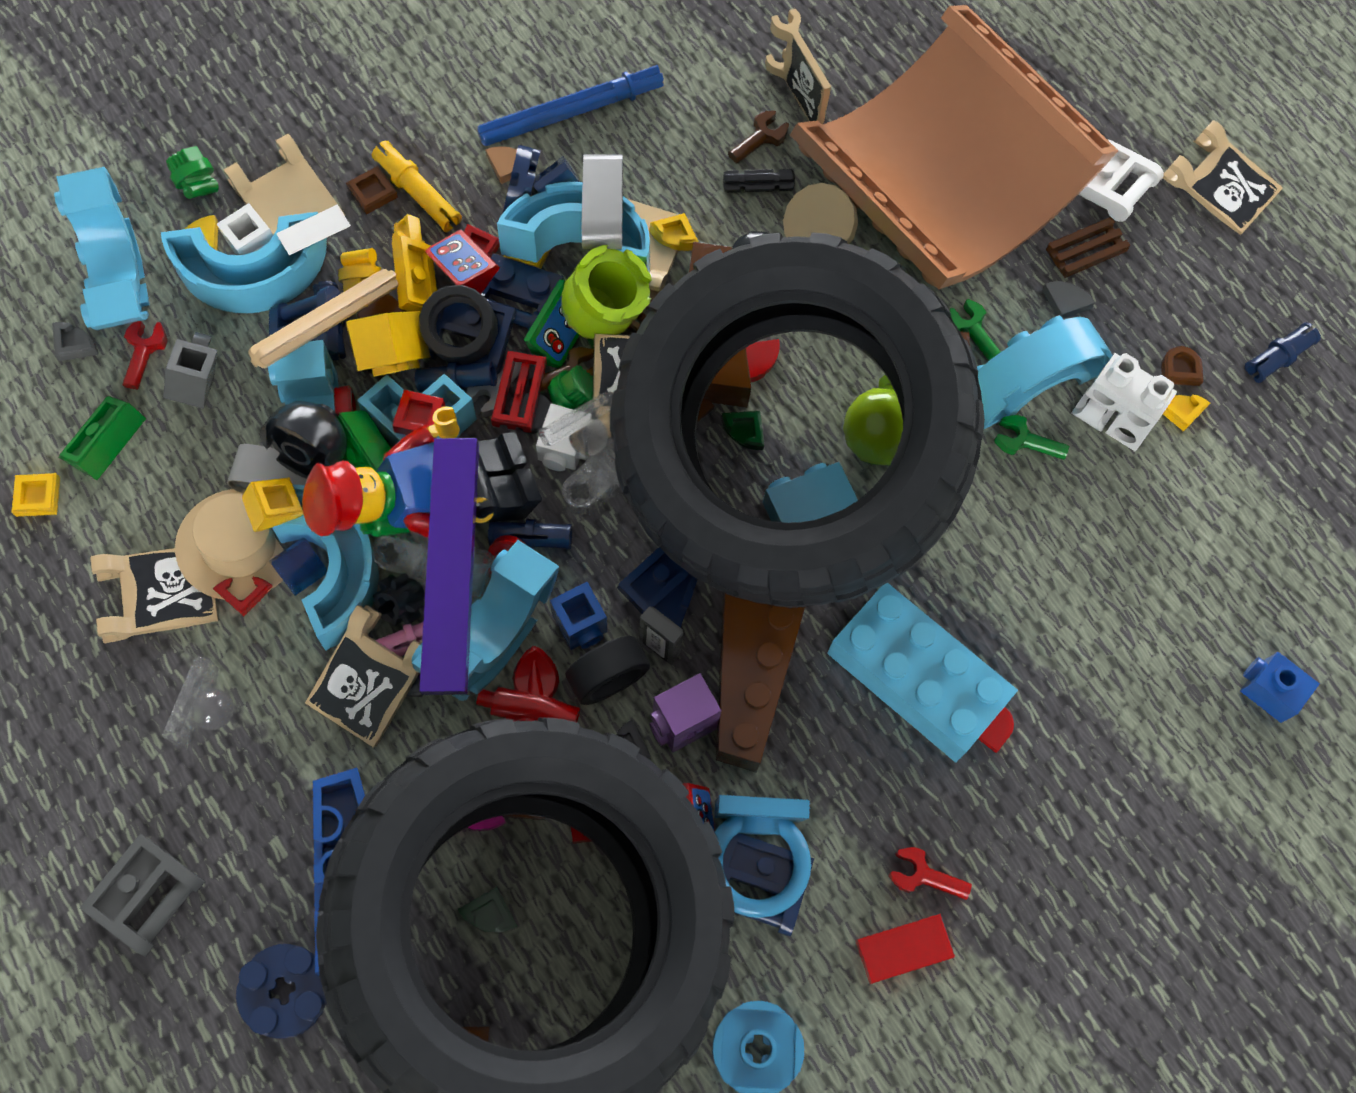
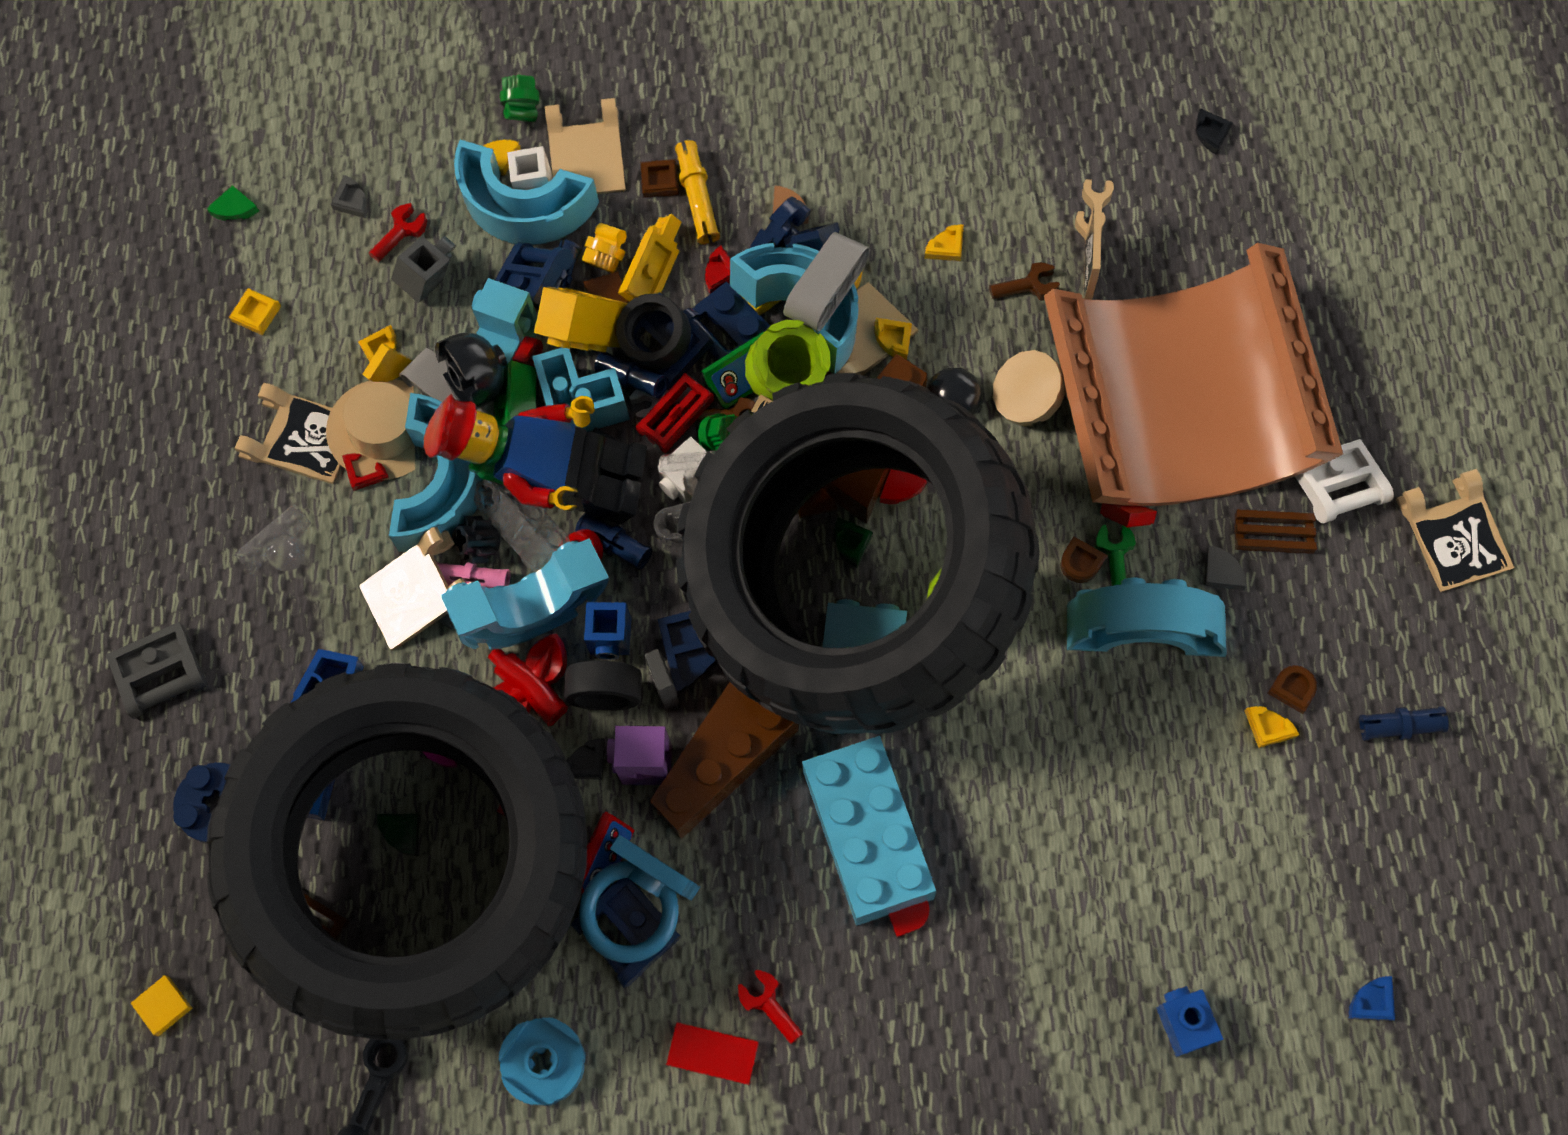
camera: 40 degrees right, 0 degrees up
(102, 437) = (330, 289): green slope -> none
(105, 247) = (416, 135): medium azure brick -> none
(188, 469) = (372, 343): none -> yellow tile
(208, 480) = (386, 365): none -> yellow tile
(271, 503) = (413, 407): yellow slope -> none
(299, 566) = (414, 471): clear blue tile -> none
(313, 229) = (580, 193): white sticker -> none
(322, 318) = (542, 273): tan axle -> none
(415, 411) = (569, 386): red tile -> none
(450, 567) = (511, 531): dark purple tile -> none
(463, 261) = (692, 278): slope -> none
(570, 105) = (873, 179): blue axle -> none
(670, 134) = (946, 244): none -> yellow tile
(758, 180) = (1000, 324): black axle -> none
(965, 290) = (1129, 515): none -> red tile
(1026, 439) = (1102, 680): green bar -> none
(1129, 391) = (1206, 689): white hips -> none

